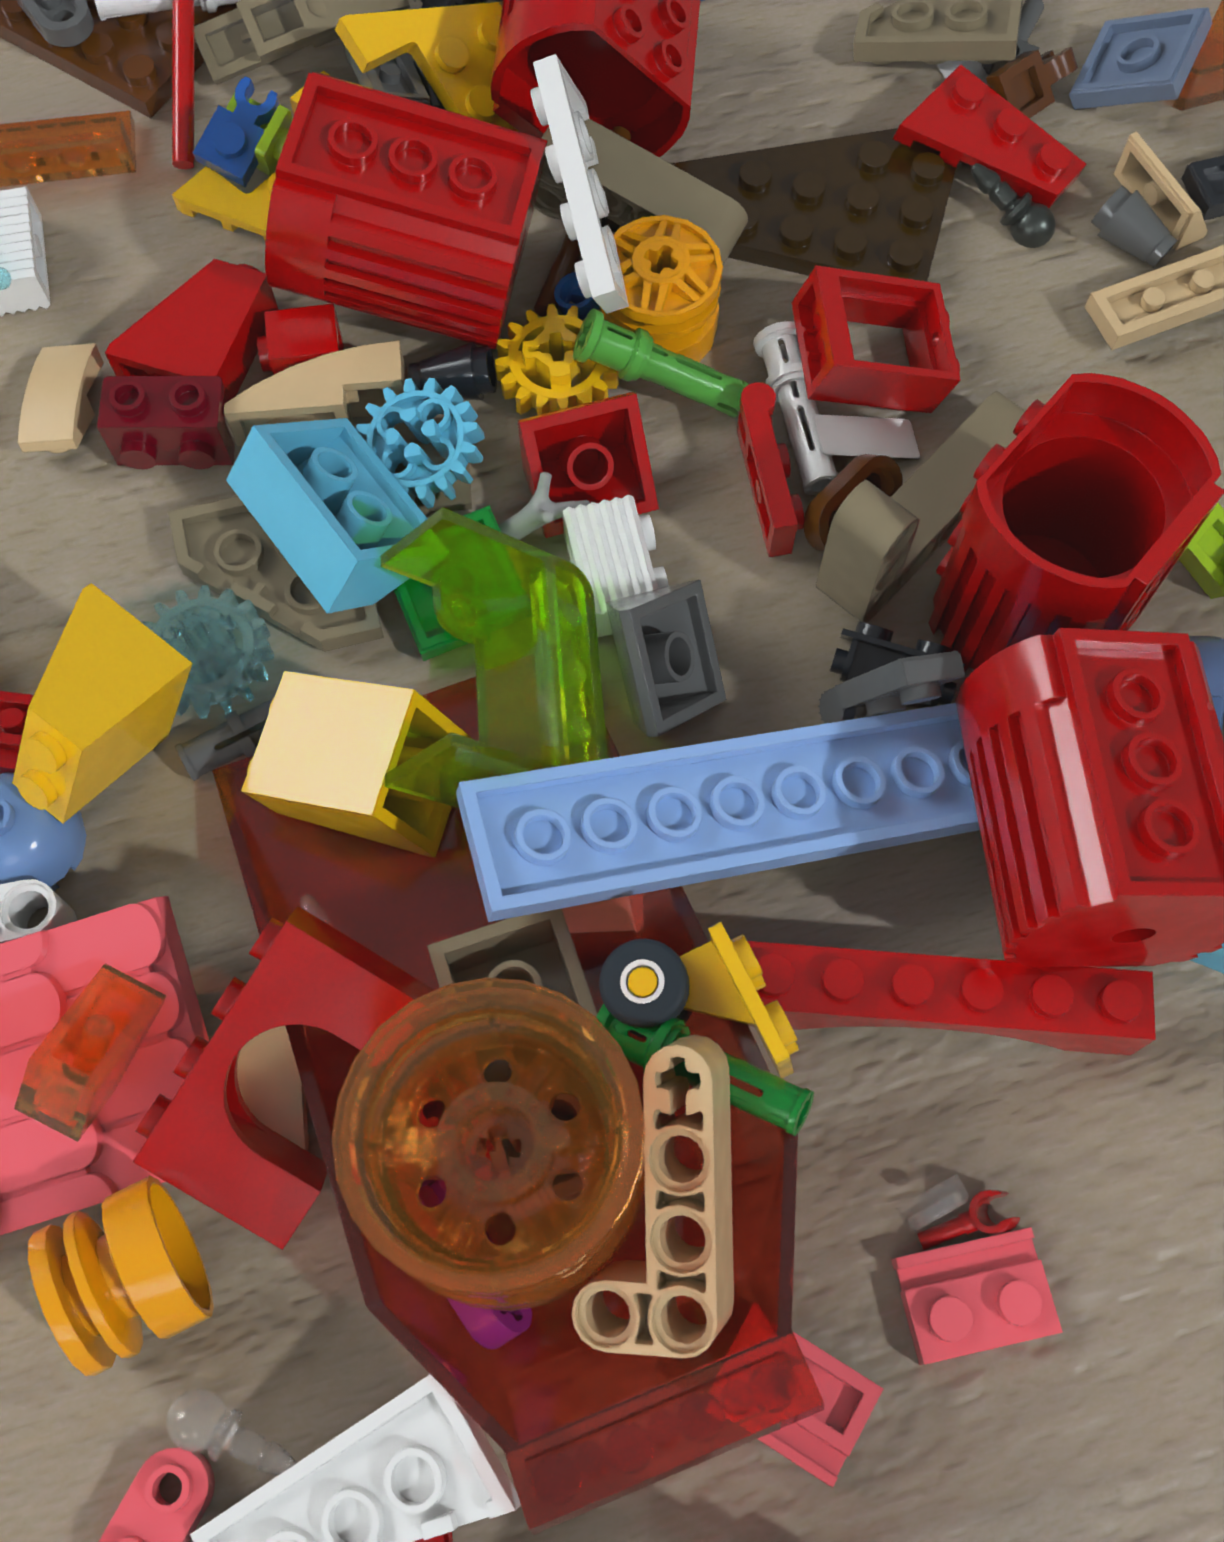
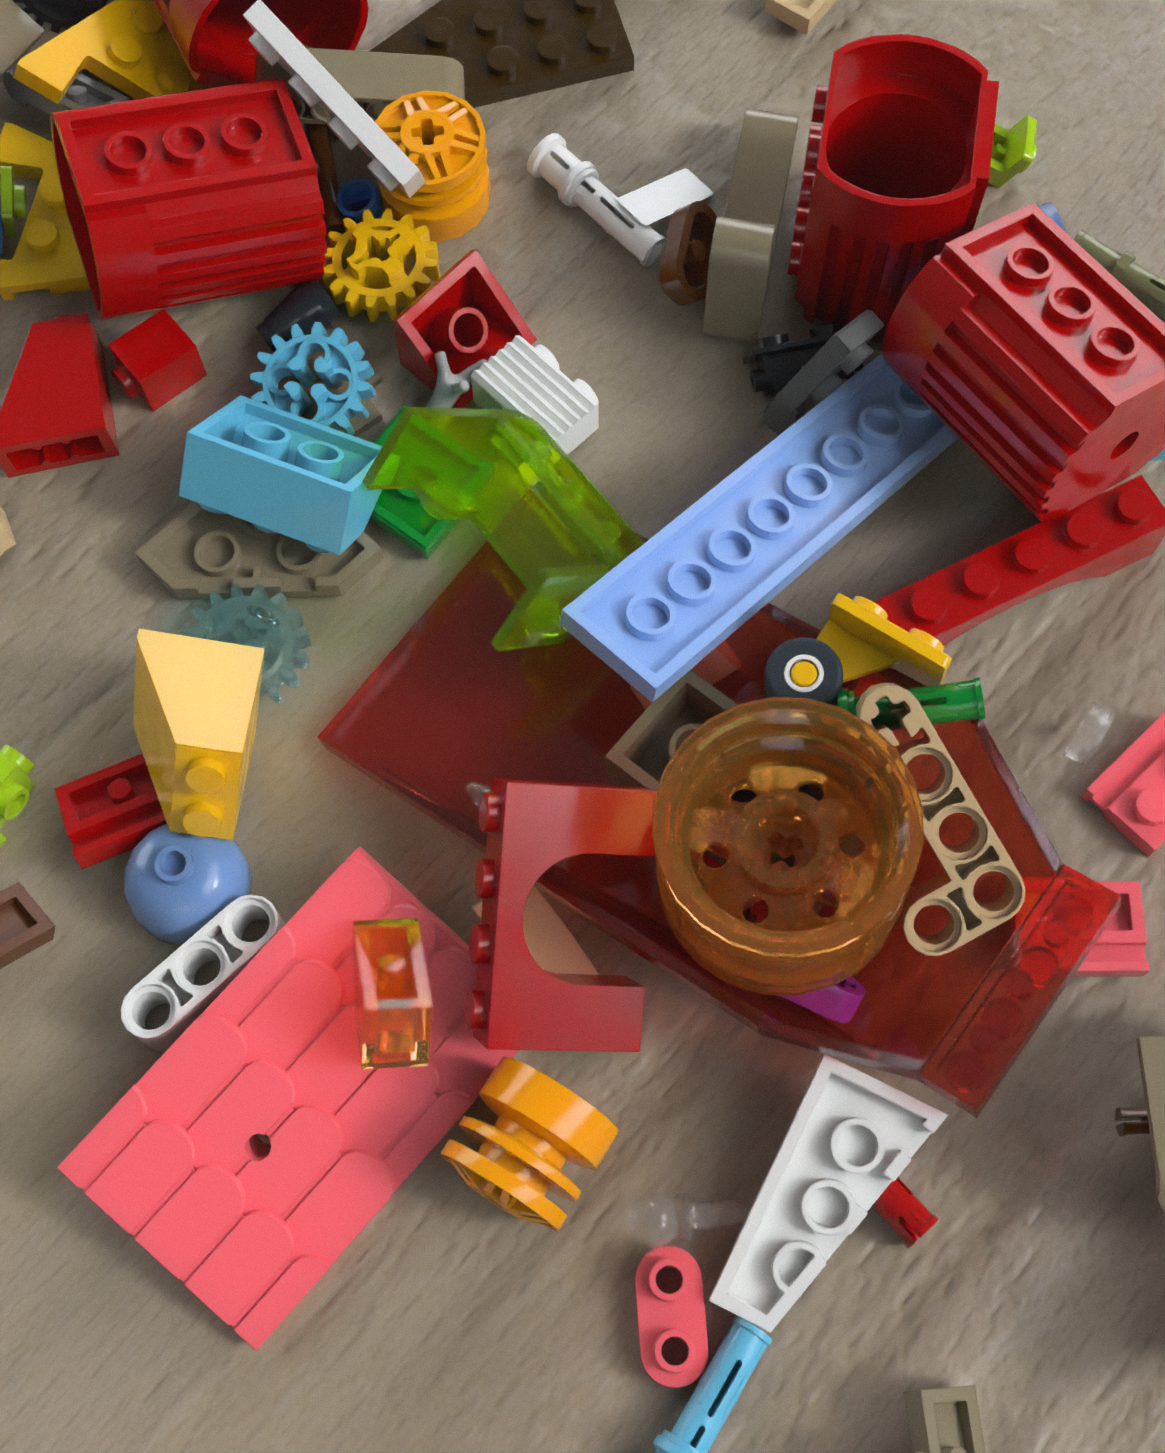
camera: 30 degrees left, 0 degrees up
(165, 421) = (82, 479): dark red bracket -> none
(200, 752) = (340, 665): dark grey pin -> none
(320, 389) = (196, 389): tan slope -> none
(330, 753) = (430, 659): slope -> none
(638, 357) = (451, 222): bright green pin -> none
(666, 656) = (626, 447): dark grey slope -> none
(768, 469) = (607, 262): red plate -> none
(825, 346) = (613, 156): red window -> none
(968, 1222) = (1119, 735): red hand -> none

